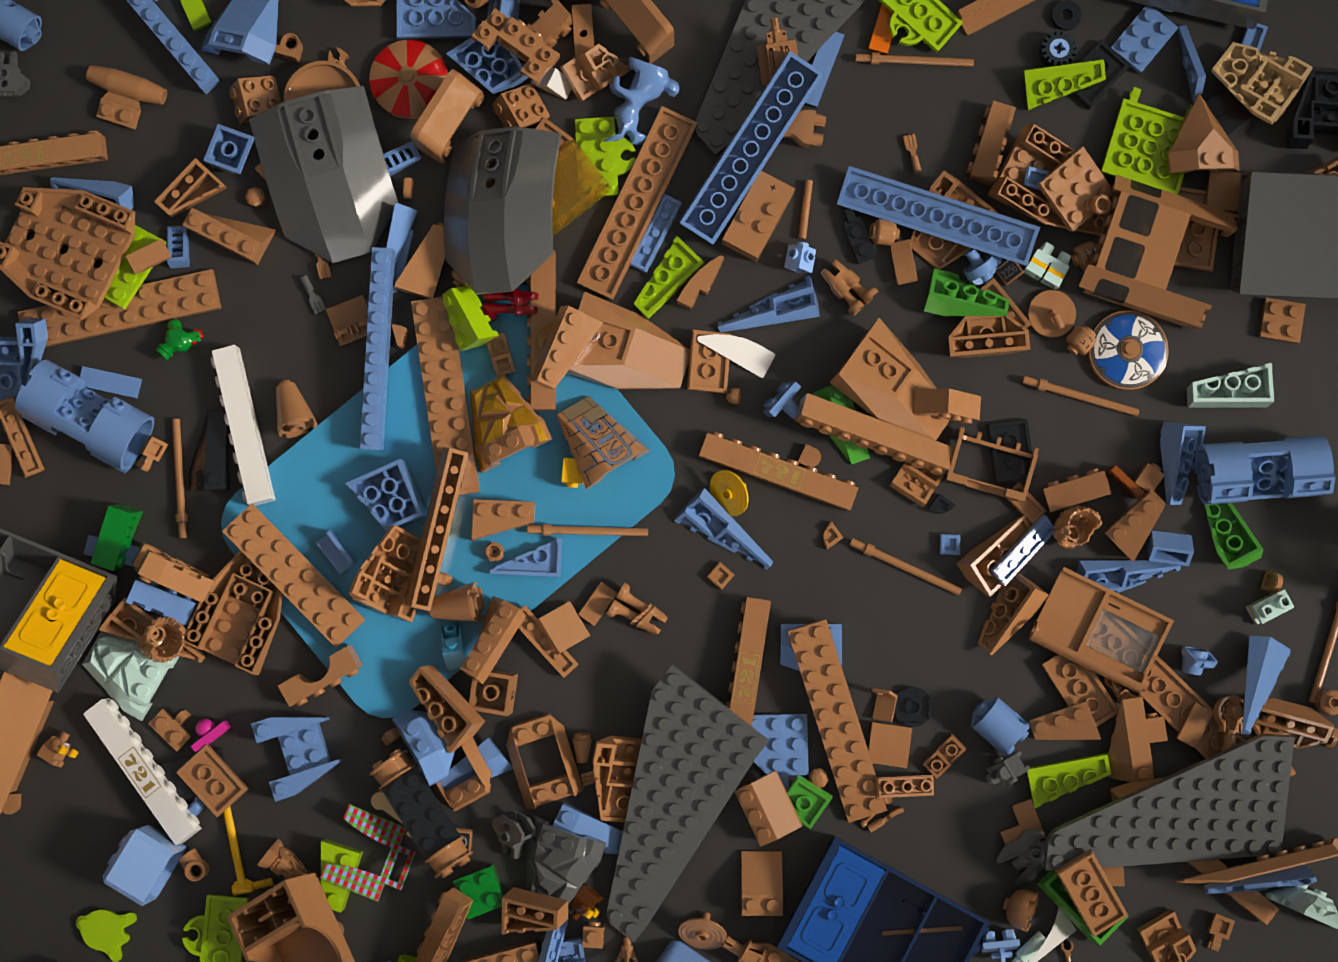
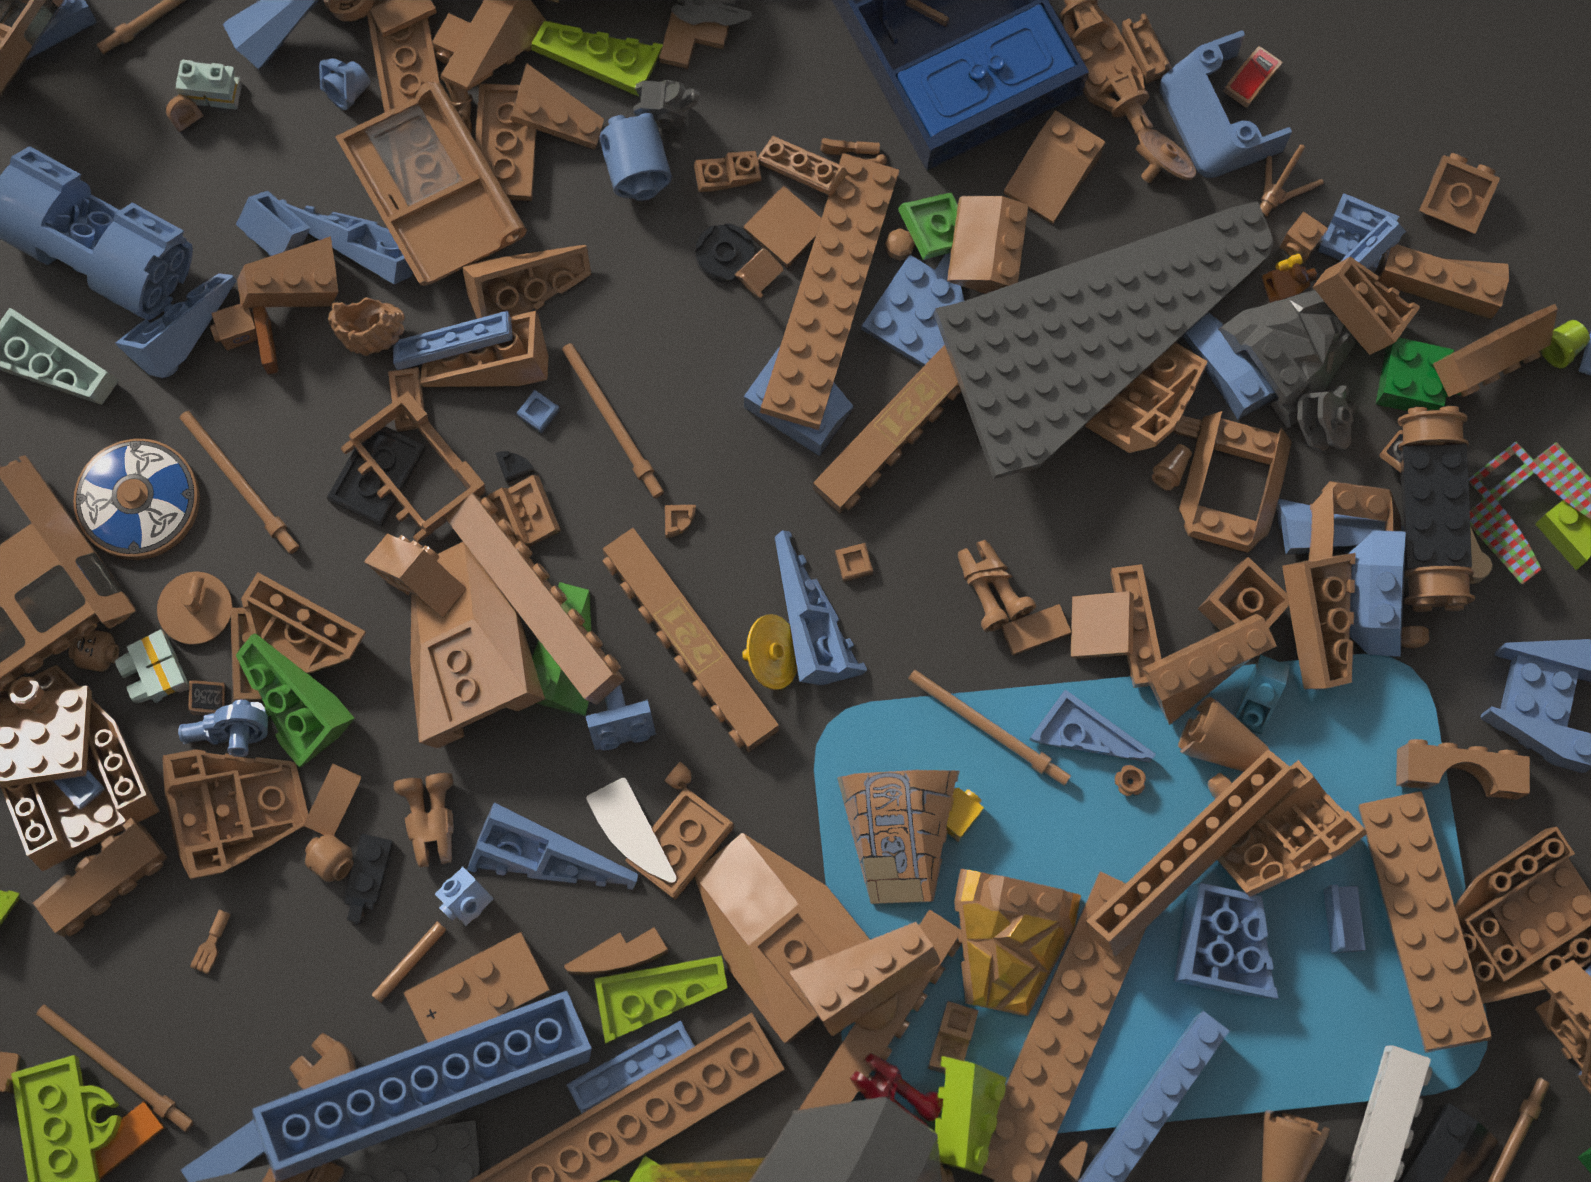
camera: 150 degrees left, 10 degrees down
(497, 516) = (1093, 818): medium nougat wedge -> none
(810, 456) = (635, 634): medium nougat tile -> none
(938, 215) = (244, 826): medium blue plate -> none
(1077, 490) = (331, 366): medium nougat wedge -> none
(1081, 340) = (185, 547): medium nougat head -> none
(1232, 536) = (189, 188): bright green wedge -> none

